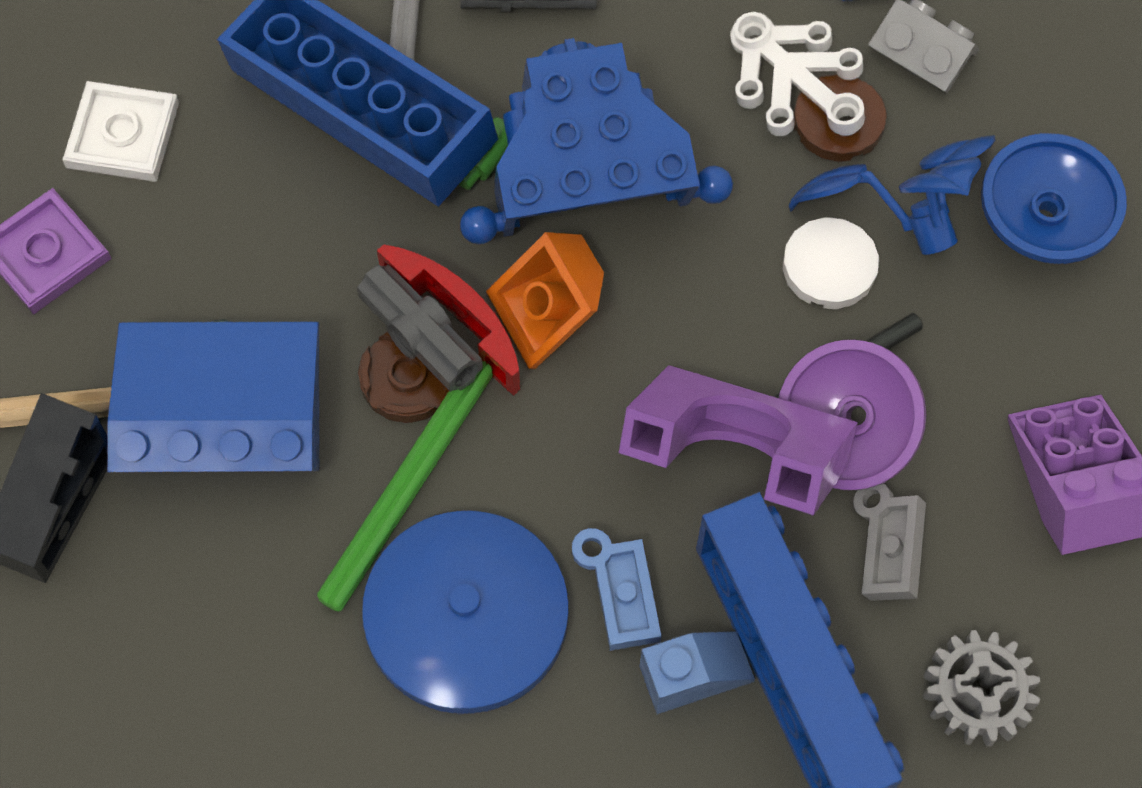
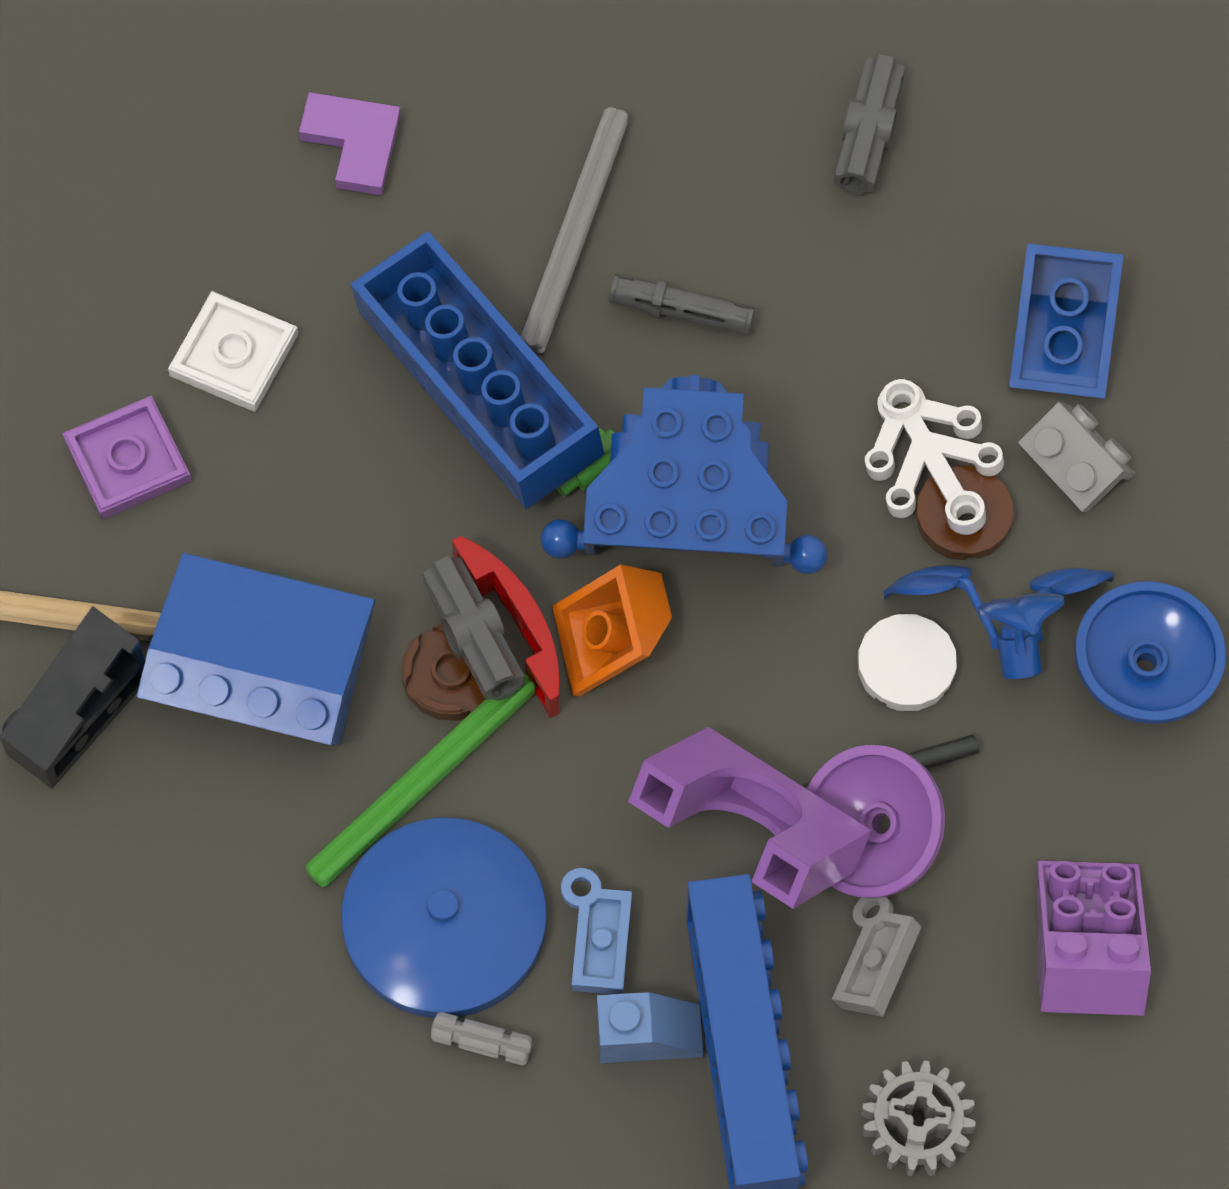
camera: 15 degrees right, 0 degrees up
(535, 720) = (481, 1038): none -> light grey axle

